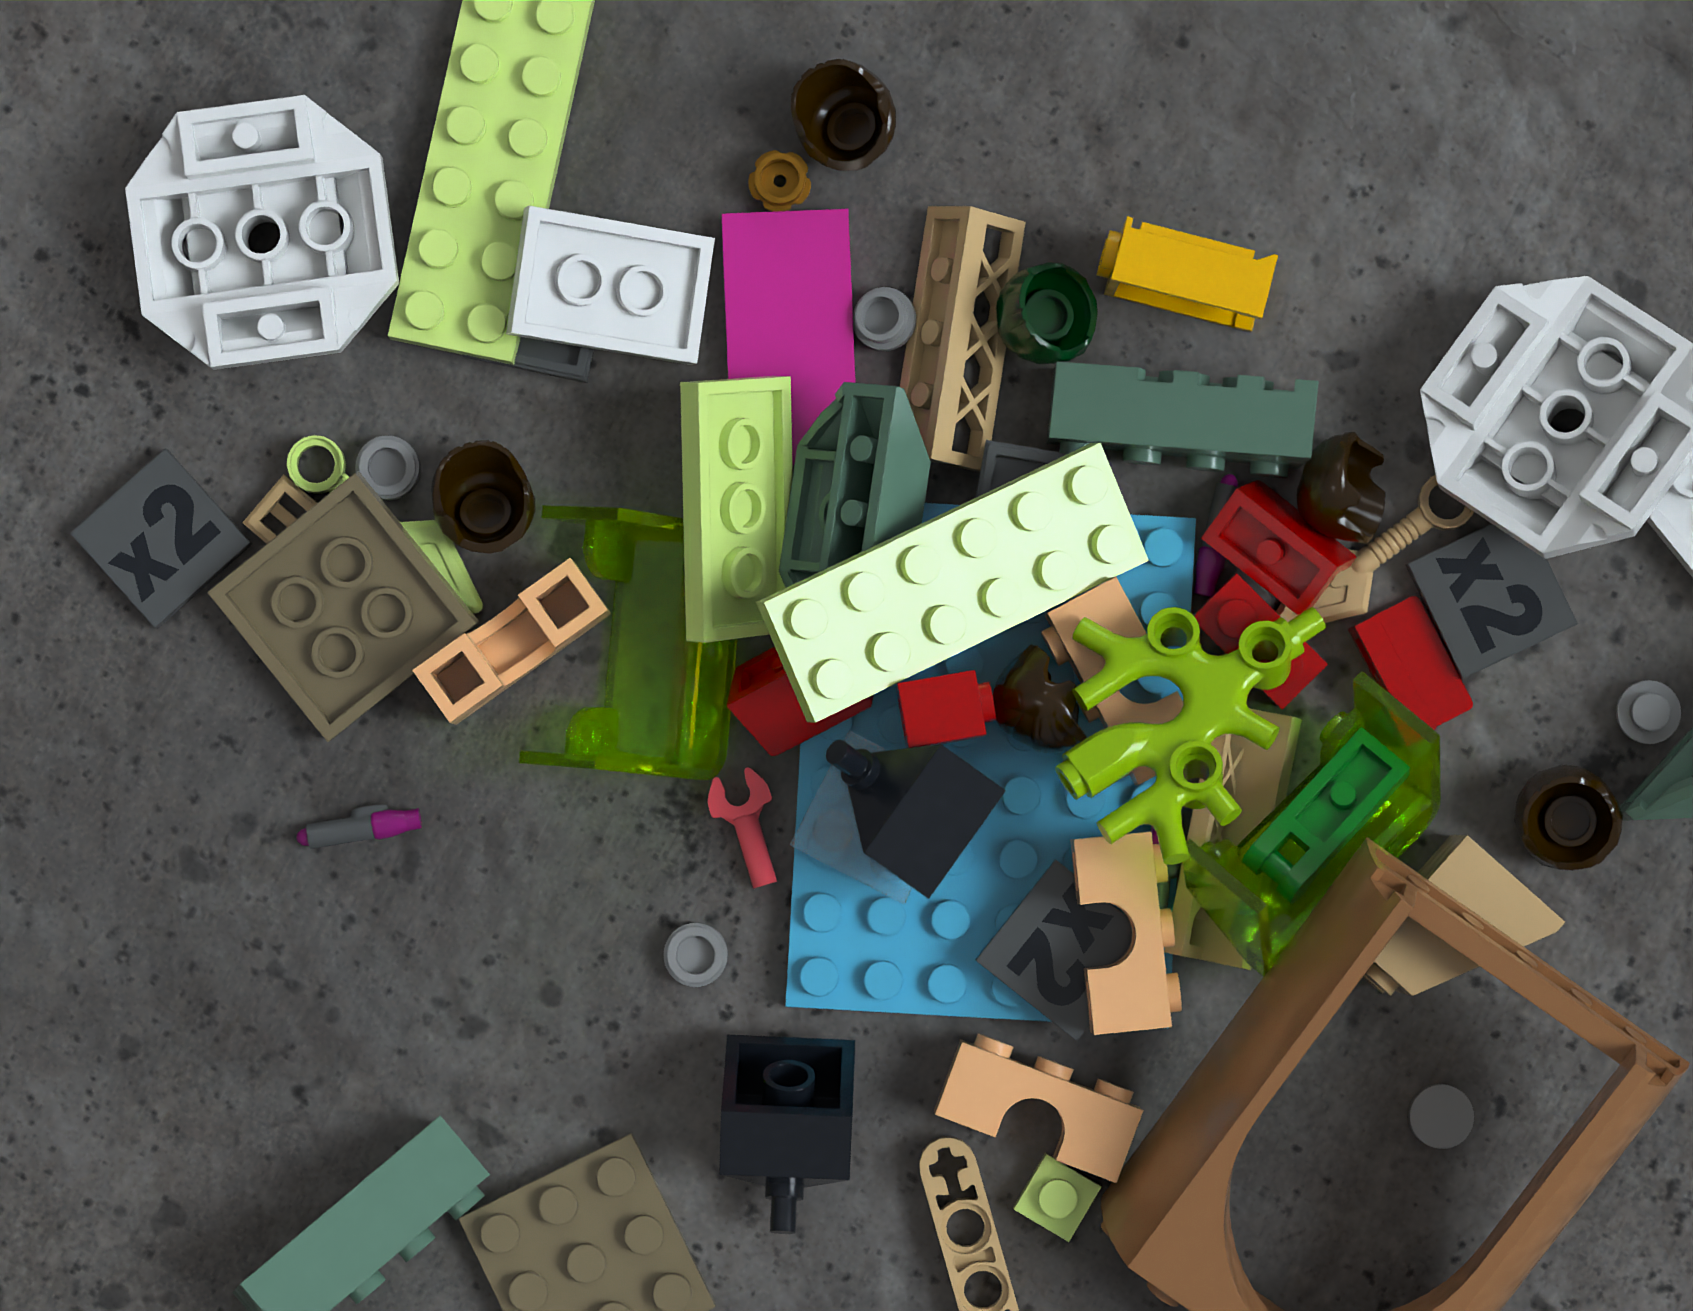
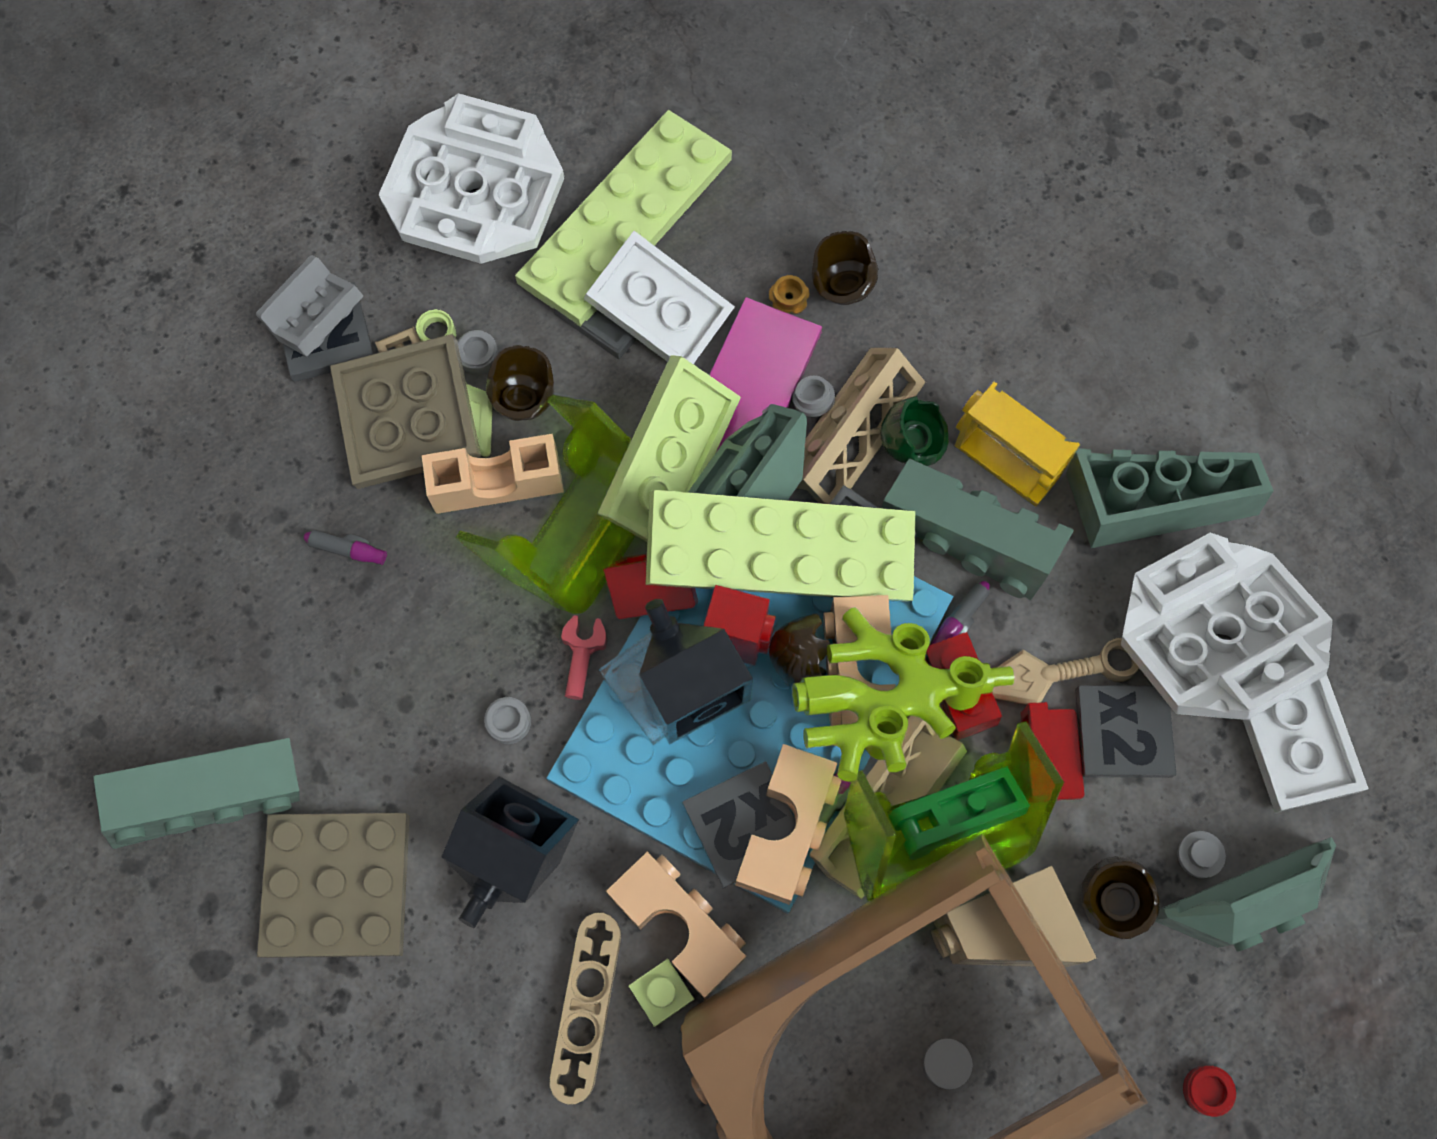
camera: 25 degrees right, 15 degrees down
(136, 524) = (308, 306): none -> light grey bracket
(1276, 546) = (997, 630): red panel -> none
(1338, 492) = (1053, 616): dark brown hair -> none
(1395, 257) = (1153, 495): none -> sand green wedge

